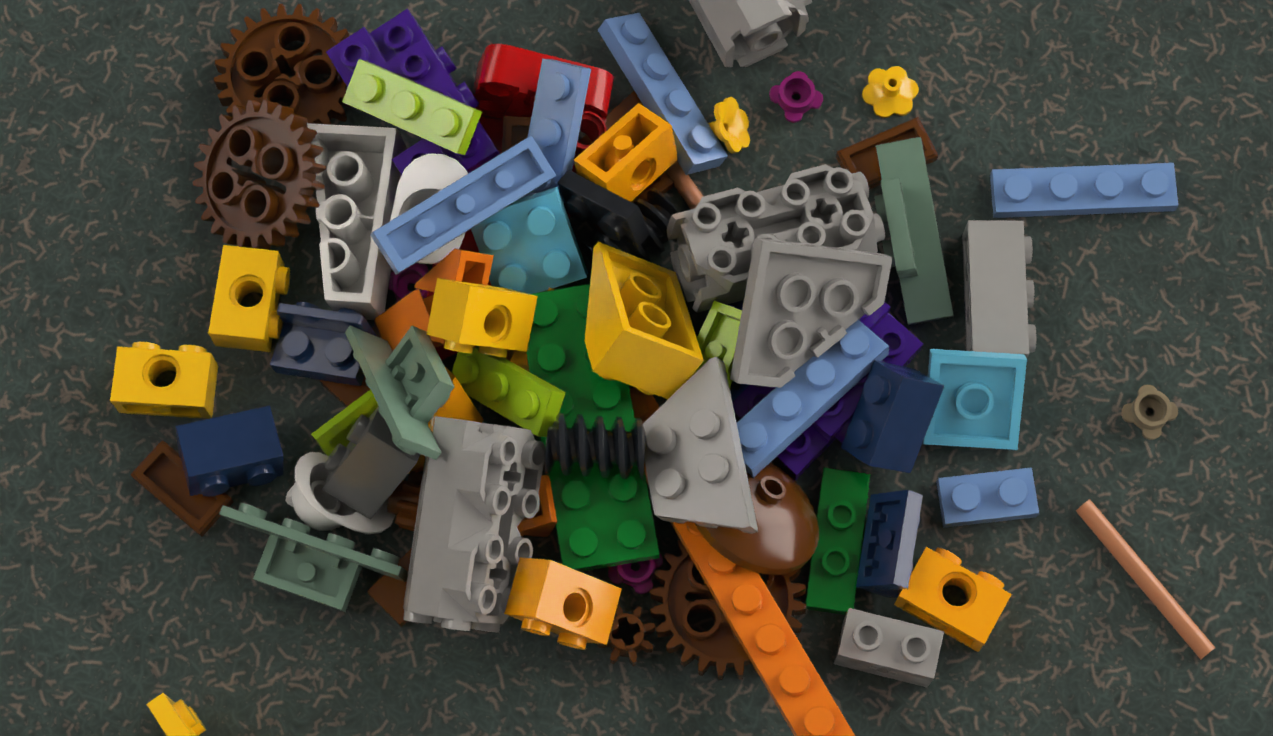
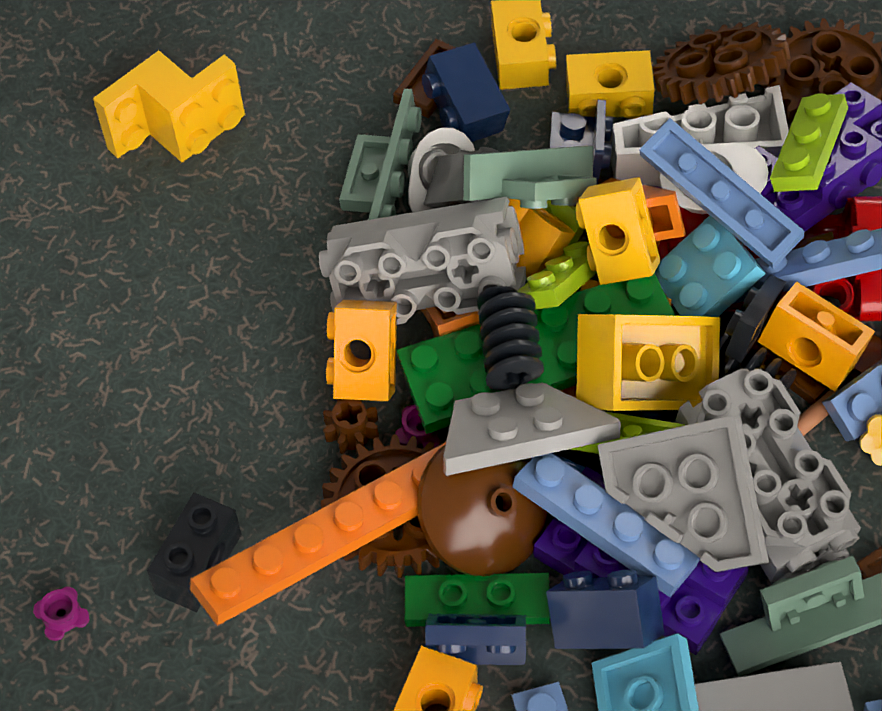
camera: 85 degrees right, 15 degrees down
(889, 647) = (371, 651): light grey brick -> none

